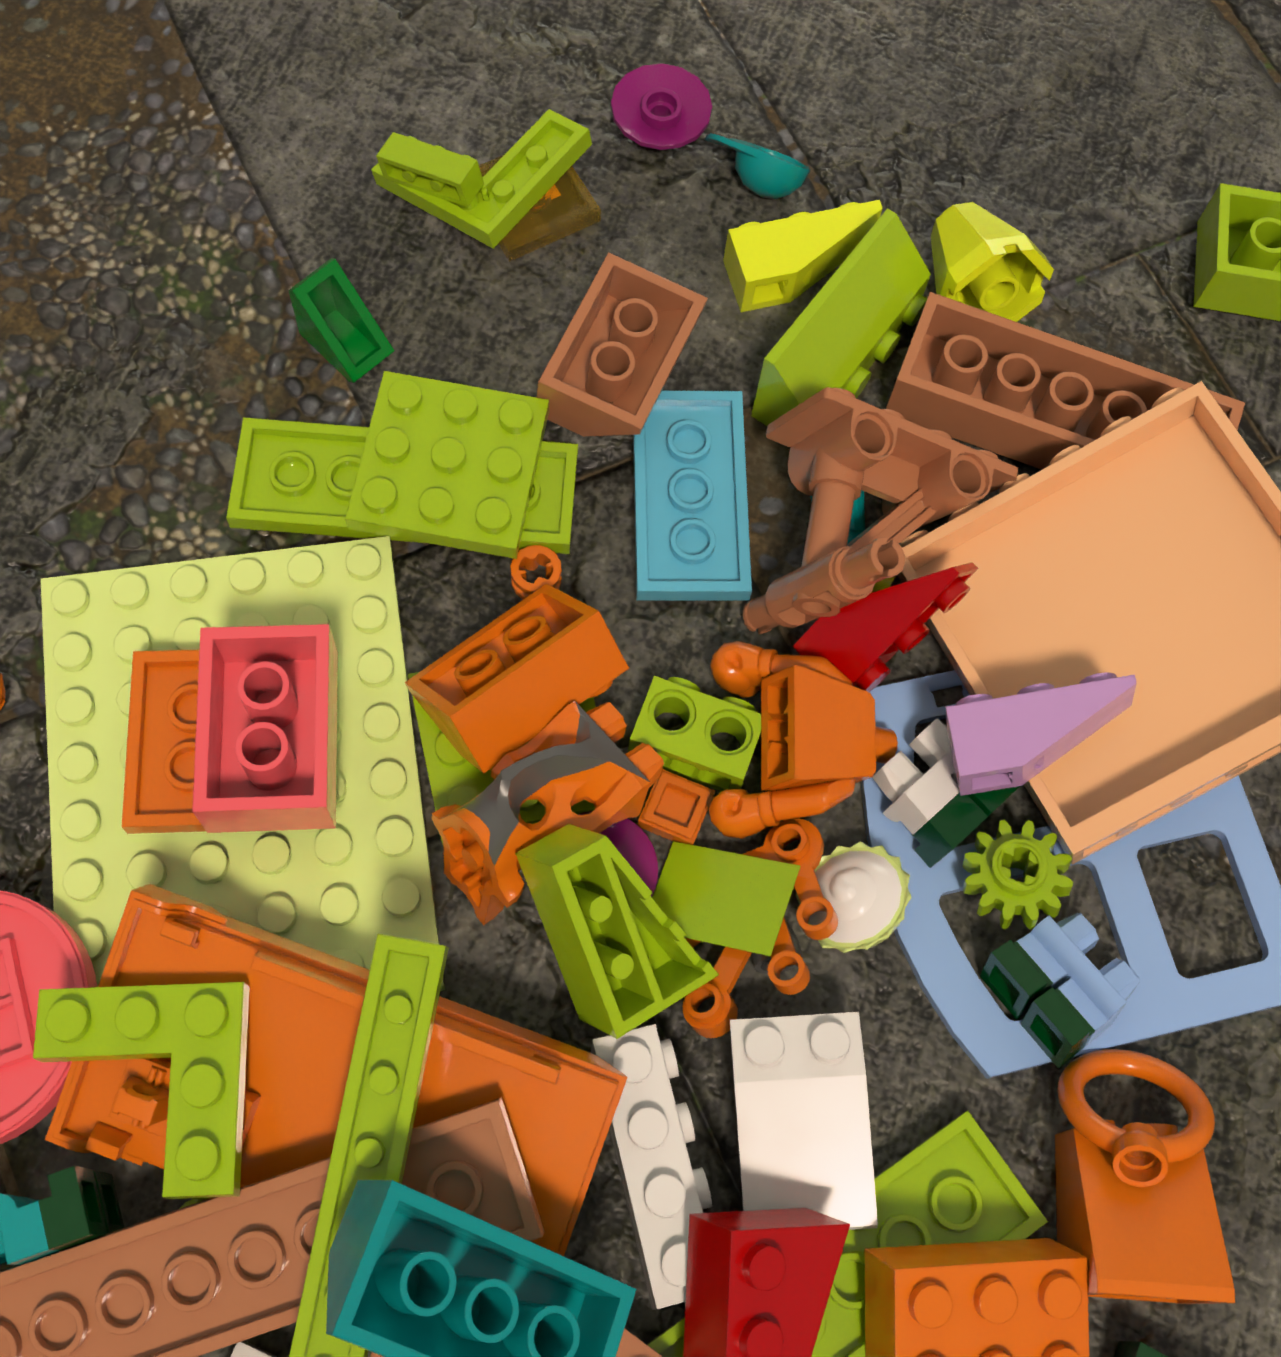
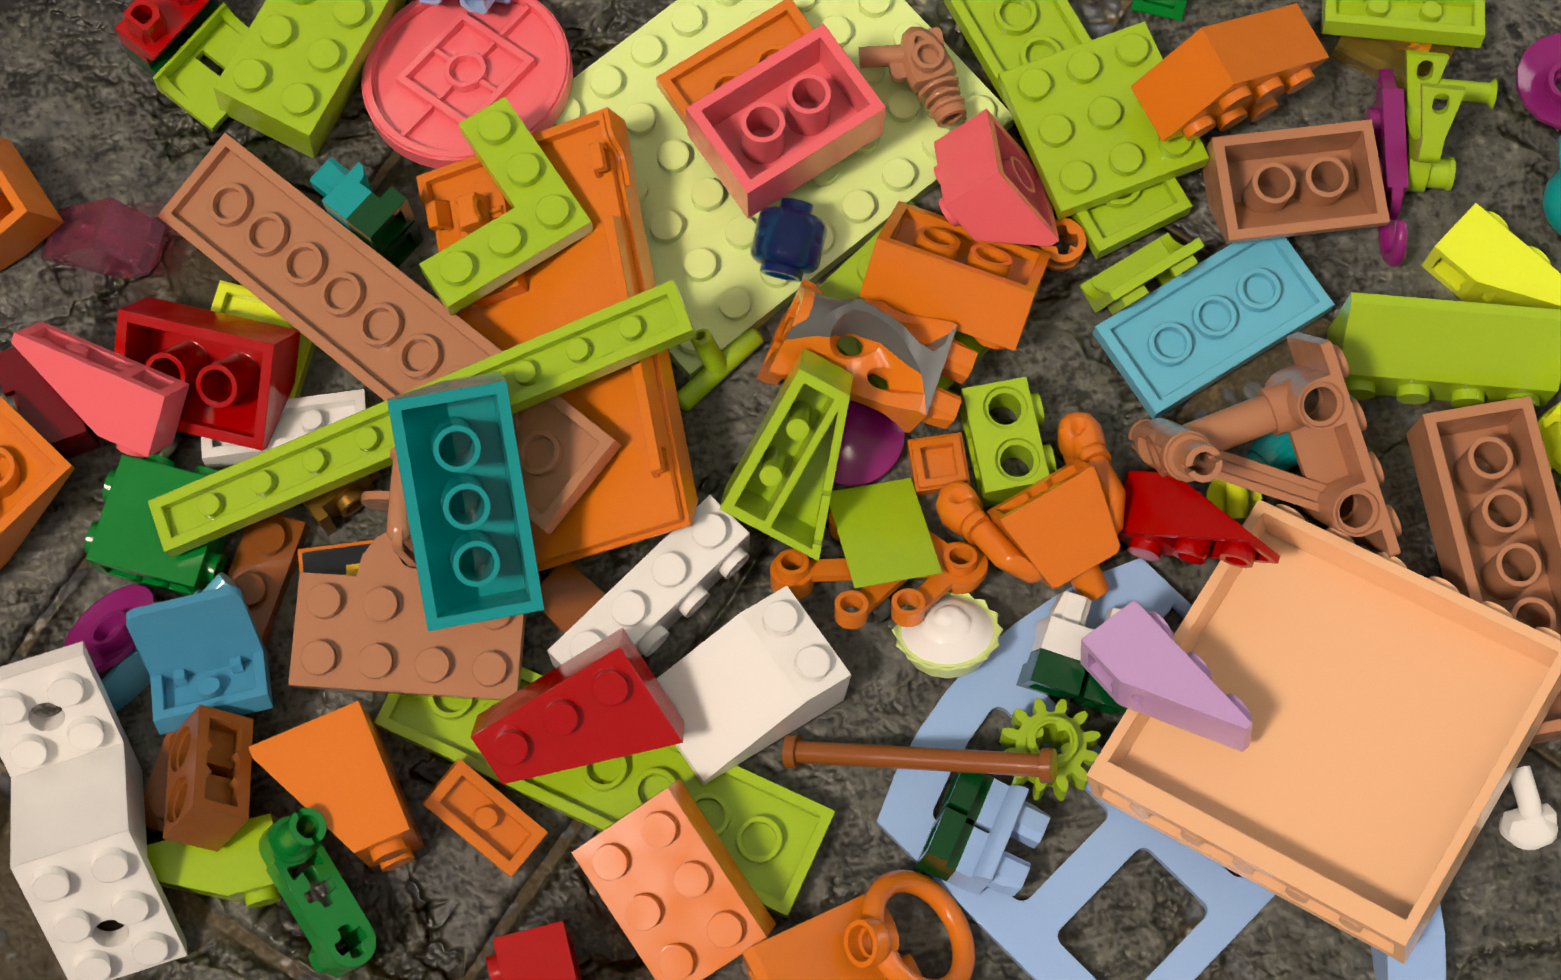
camera: 65 degrees right, 5 degrees up
(295, 574) = (927, 69): none -> nougat piece
(380, 804) = (788, 240): none -> clear blue head
(450, 592) = (992, 185): none -> coral slope
(450, 935) = (716, 363): none -> lime piece
(495, 330) = (1230, 73): none -> orange brick
(594, 241) = (1390, 138): none -> magenta plate
(602, 1246) = (568, 596): none -> dark orange tile
(610, 529) = (1125, 280): none -> lime piece
(653, 246) = (1429, 127): none -> lime piece
(968, 999) = (1041, 765): none -> dark orange bar

